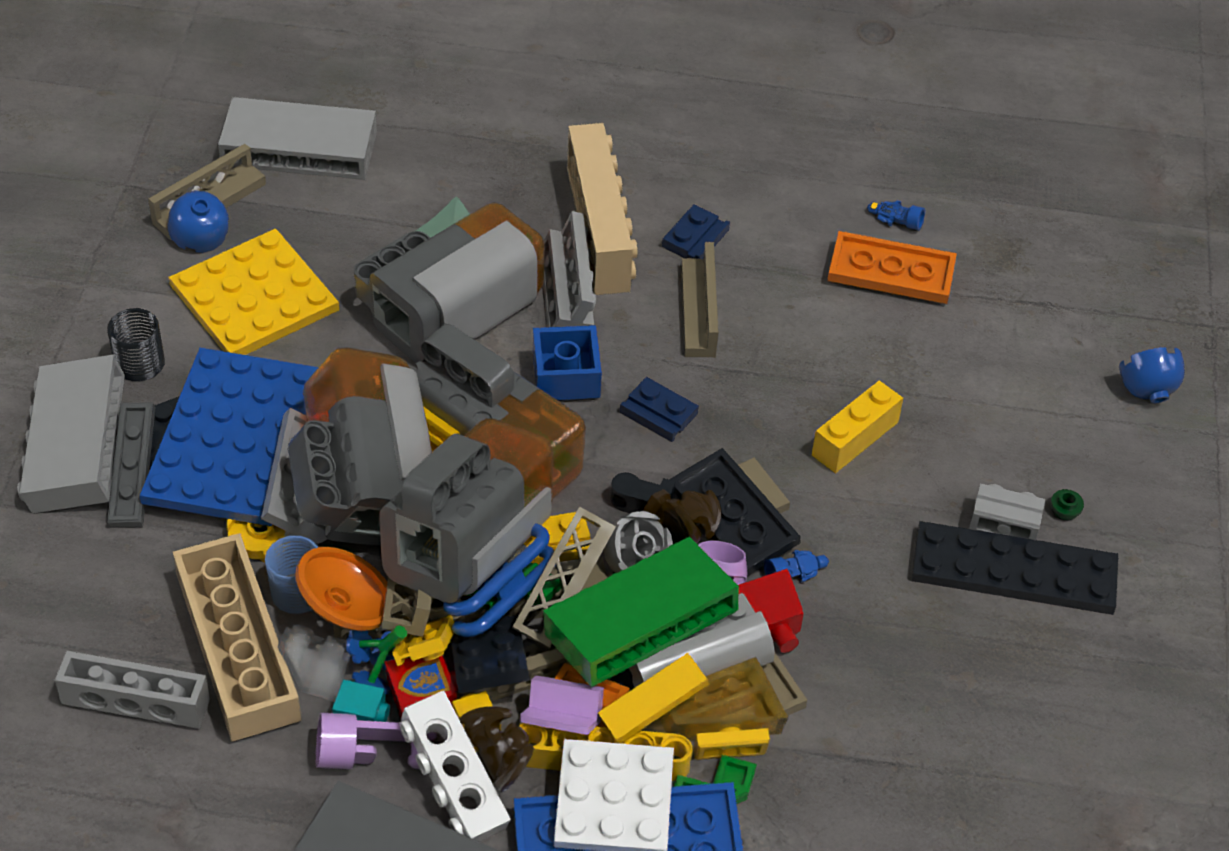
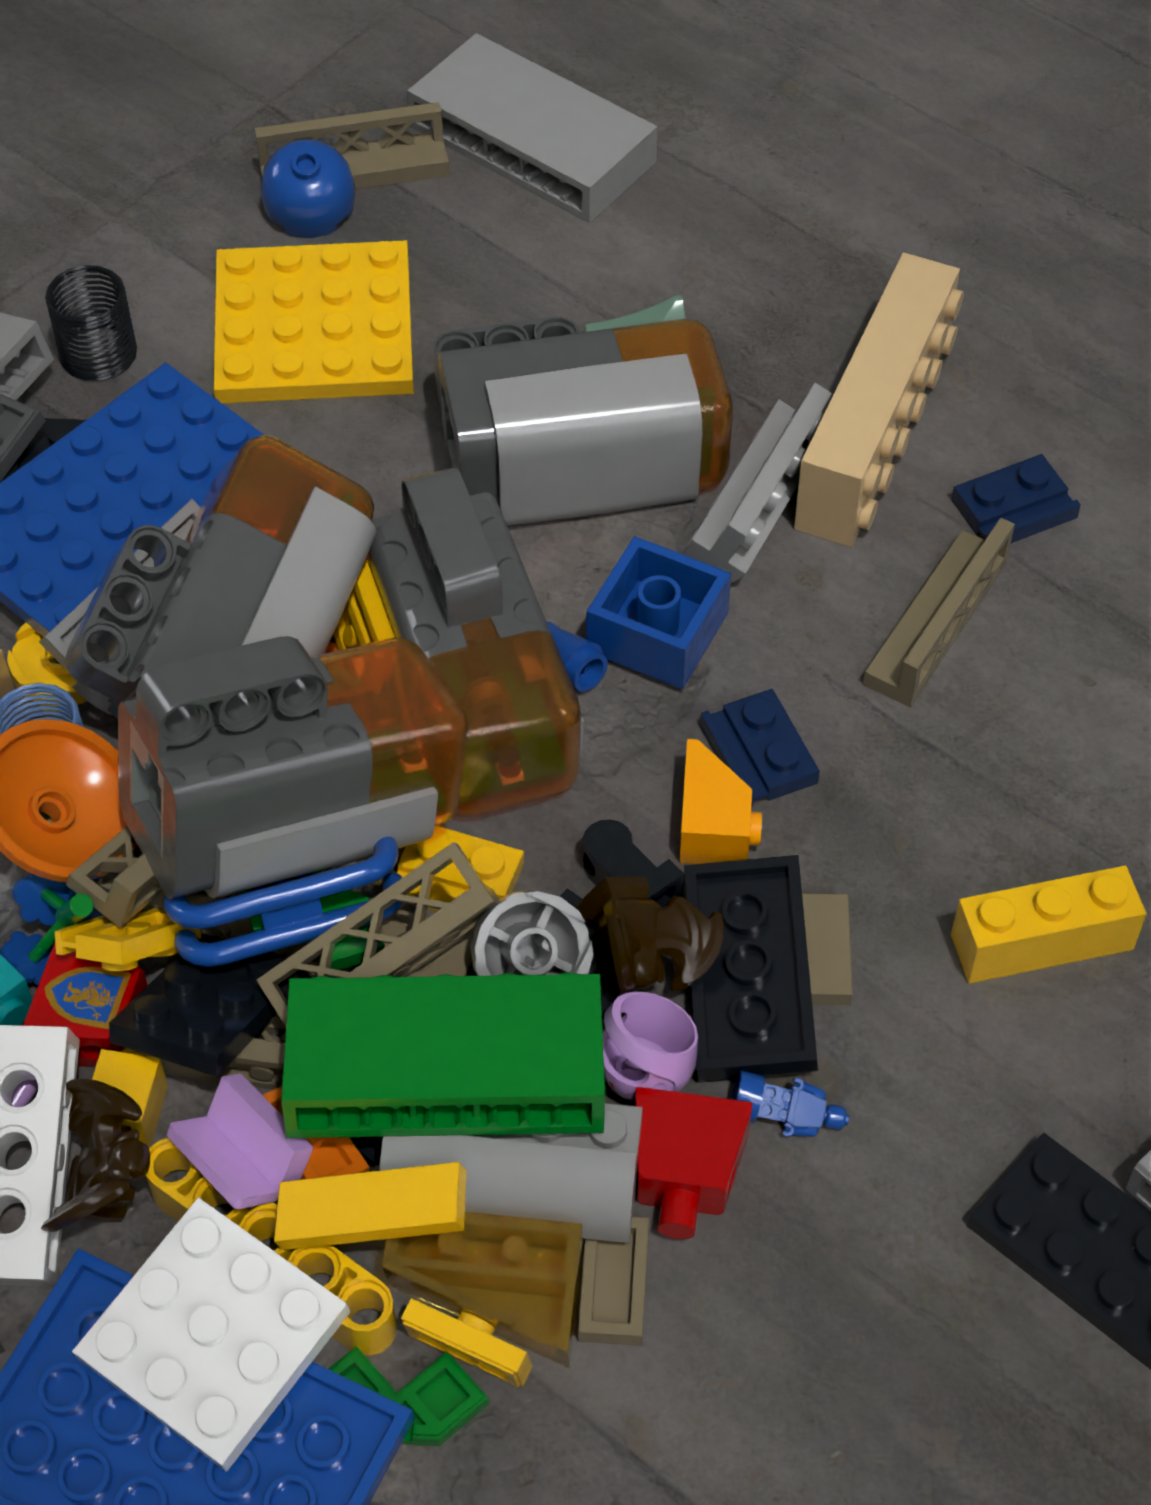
camera: 35 degrees right, 5 degrees up
(662, 446) = (715, 810): none -> light orange slope

